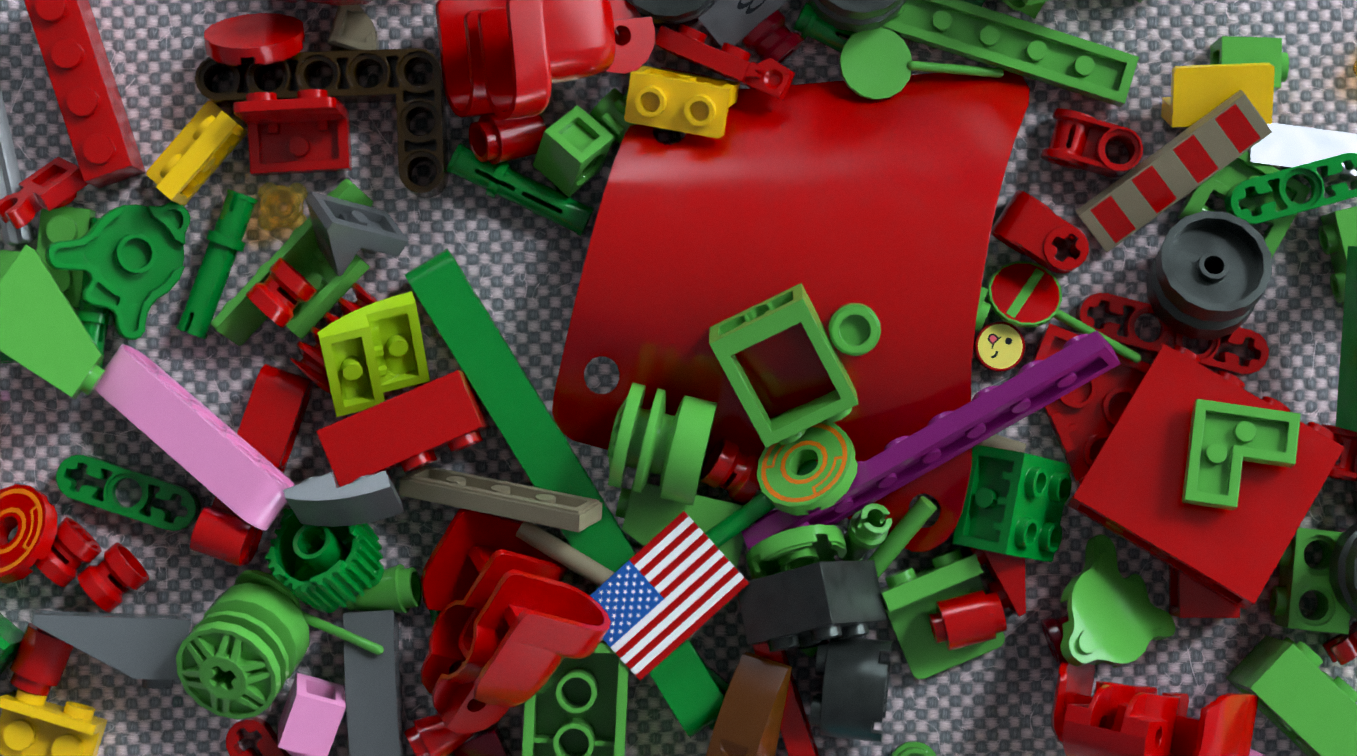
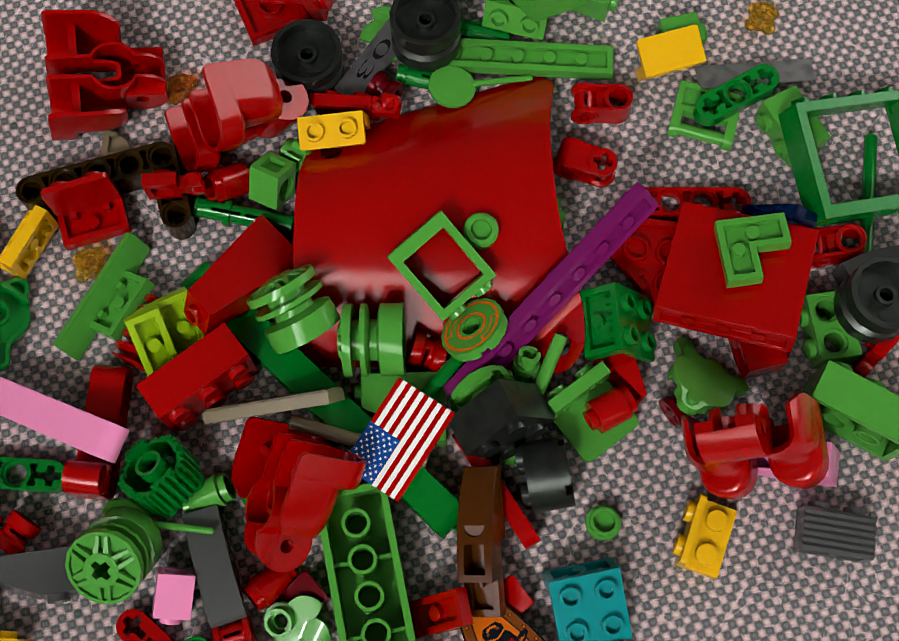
camera: 15 degrees left, 15 degrees down
(217, 263) = (53, 304): green pin -> none
(258, 35) = (50, 162): red tile -> none
(273, 301) = (94, 317): red wheel -> none
(325, 503) = (153, 432): dark grey slope -> none
(347, 226) = (131, 261): dark grey slope -> none
(416, 127) = (167, 184): none -> red plate
(507, 293) = (237, 274): none -> red slope
(559, 378) = (291, 305): none -> bright green wheel
(999, 346) = (575, 233): light yellow tile -> none
(1031, 297) = (591, 201): piece -> none
(1174, 171) = (655, 103): dark tan tile -> none
(1208, 275) = (697, 156): pearl dark grey wheel -> none
(1298, 399) = (793, 212): none -> clear blue tile

